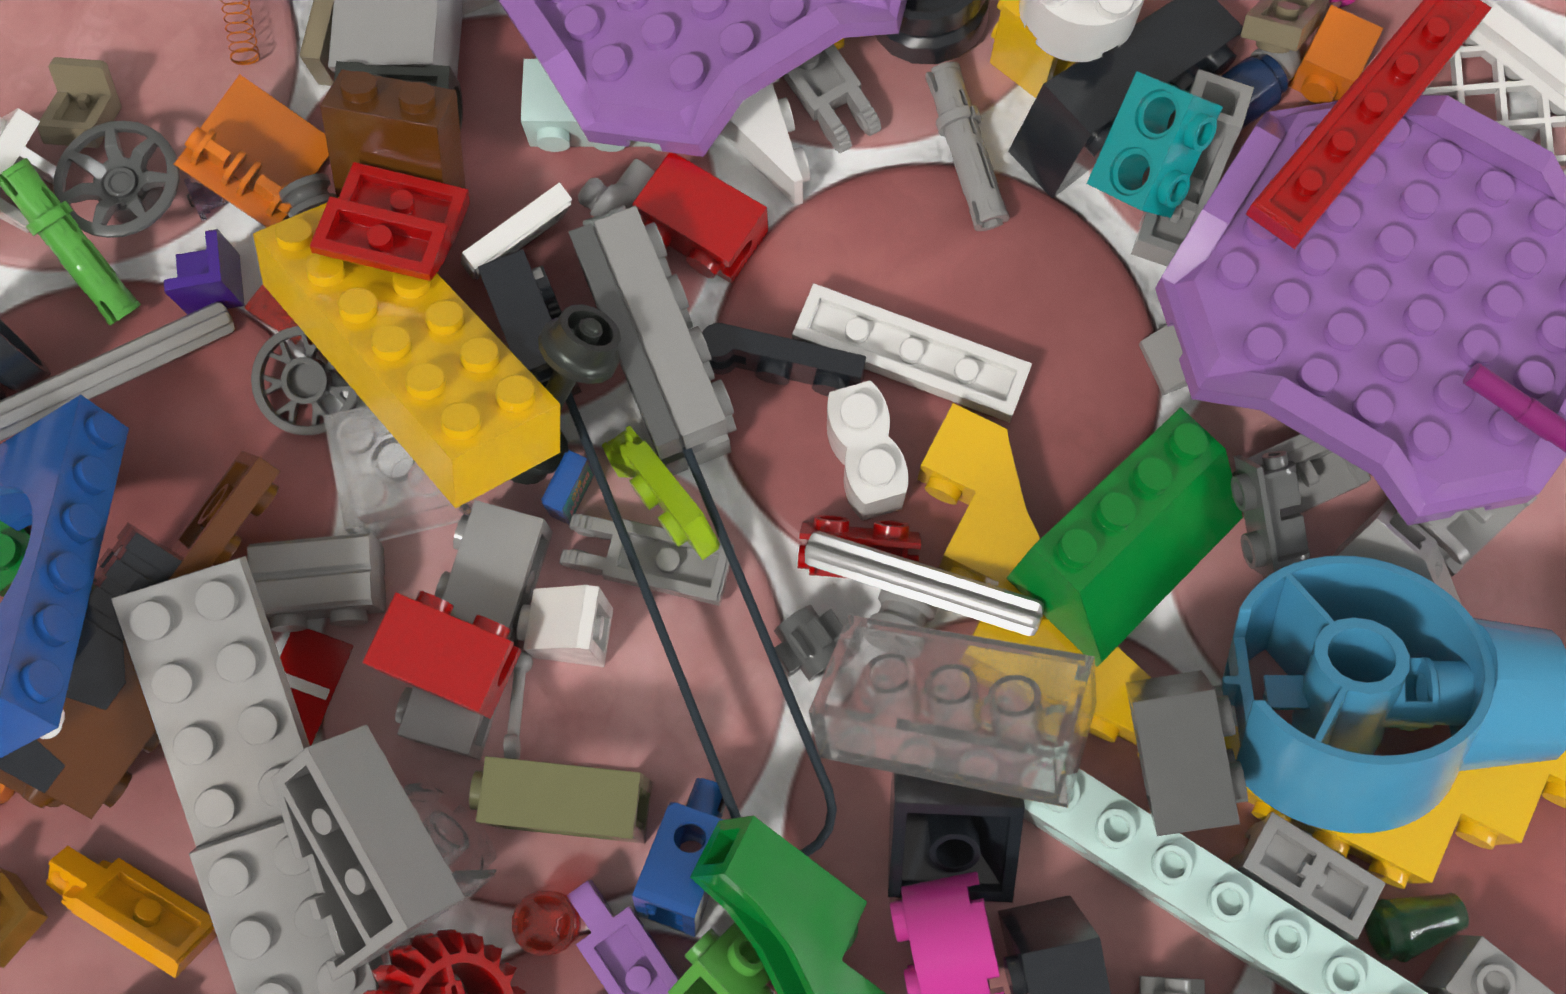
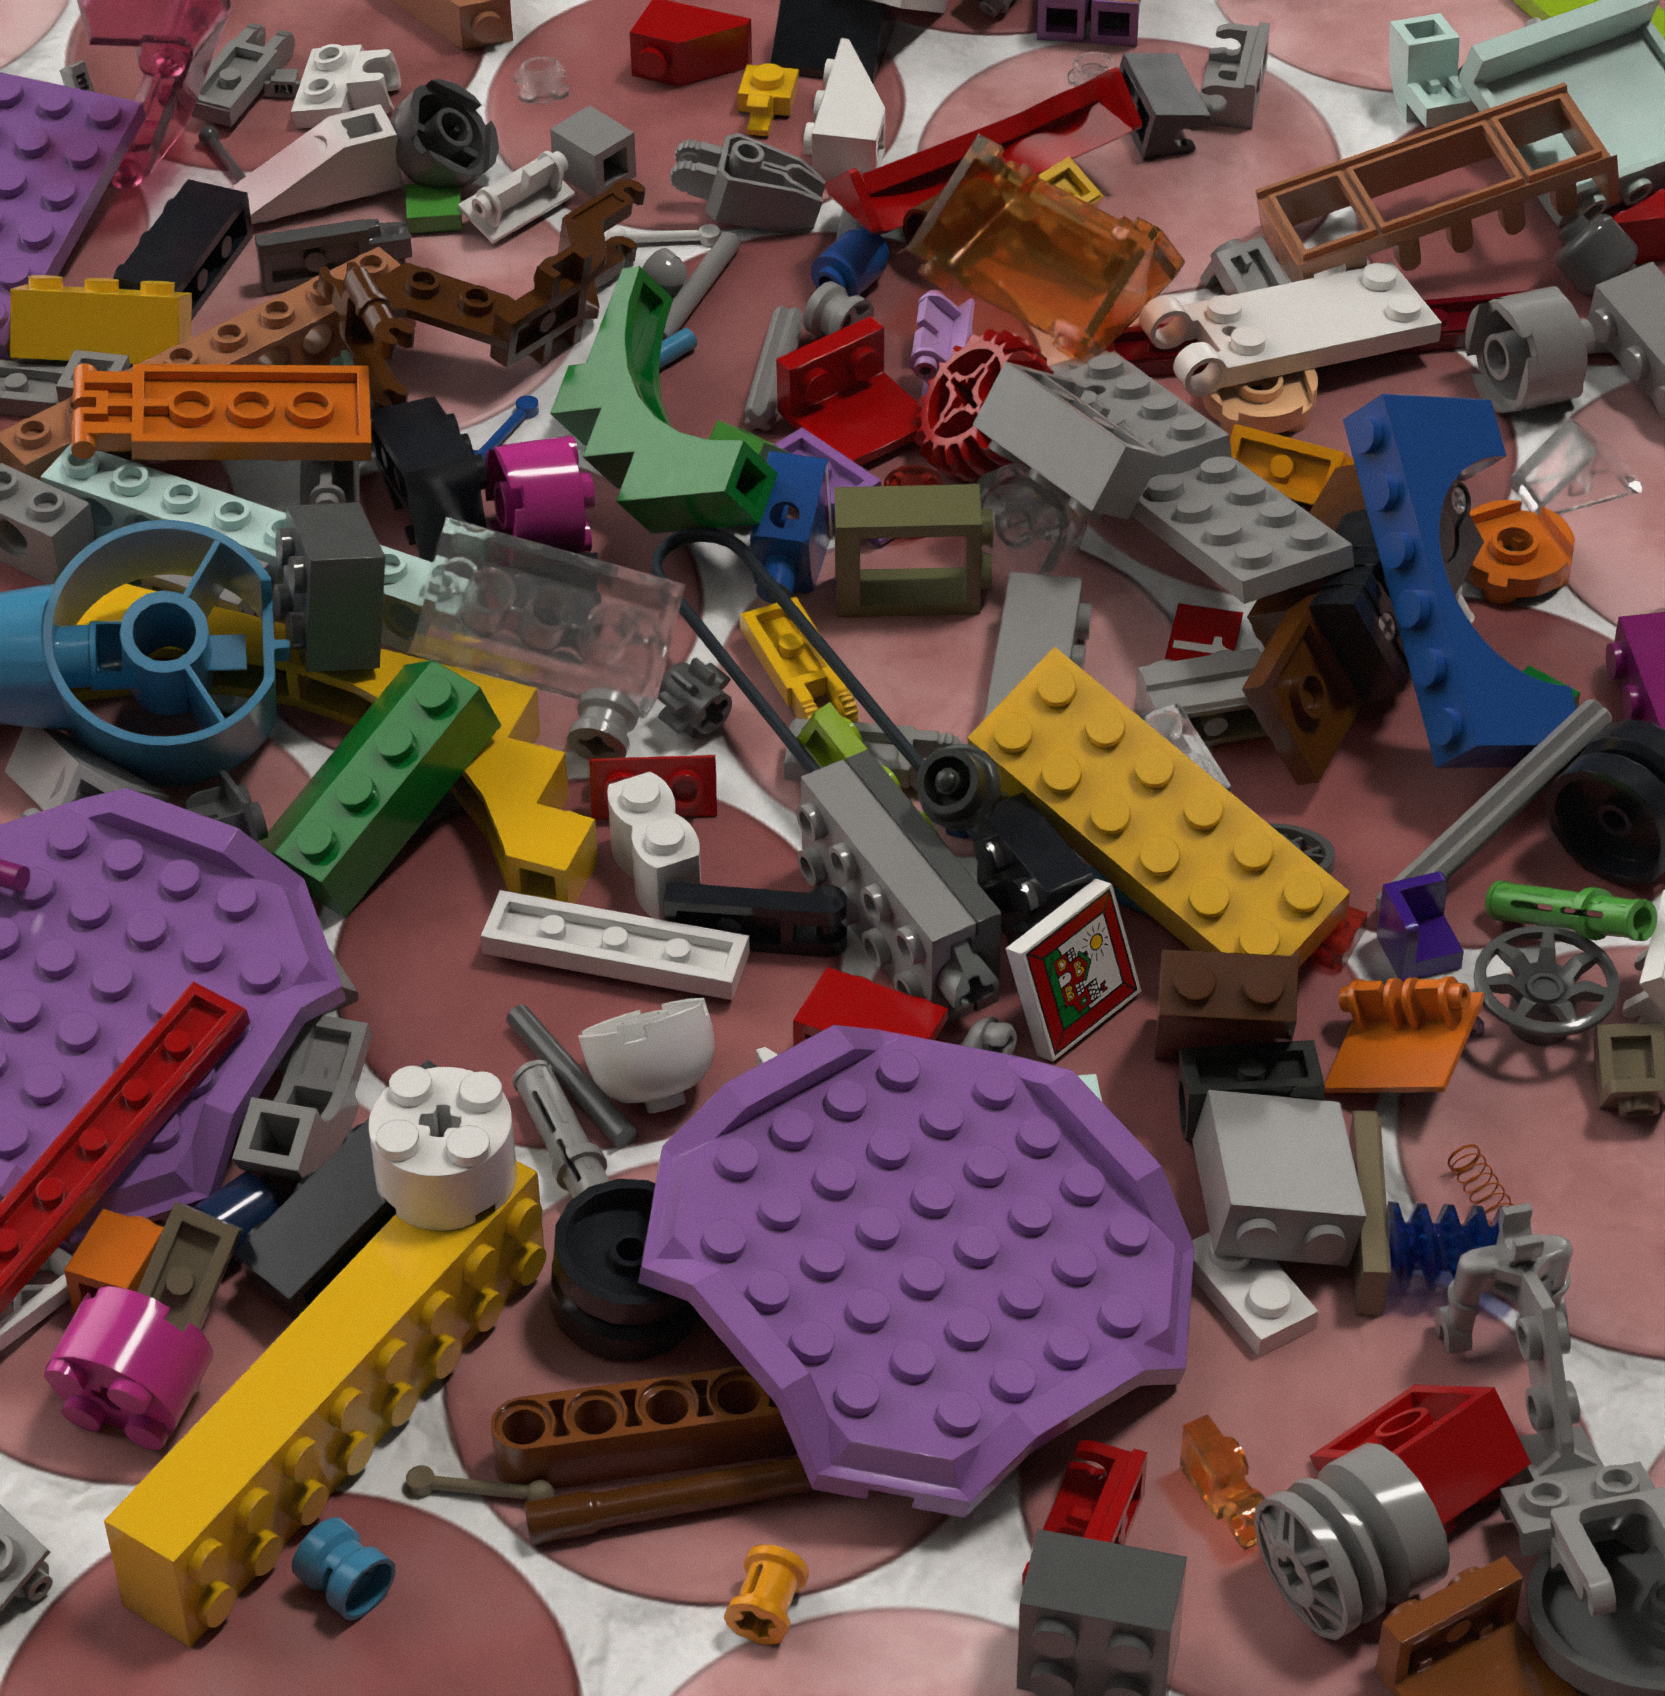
camera: 170 degrees right, 30 degrees down
(306, 193) = (1320, 974): dark grey bush -> none
(391, 222) = (1195, 896): red slope -> none
(443, 653) = (1046, 604): red brick -> none
(512, 740) = (983, 674): light grey hinge -> none
(567, 625) = (939, 675): white slope -> none
(712, 695) = (794, 663): none -> yellow hinge
(894, 203) = (651, 1053): none -> white cylinder
(924, 583) = (589, 716): axle -> none
(959, 228) = (572, 1076): none -> dark grey bar
(1143, 141) = (347, 1066): teal brick -> none

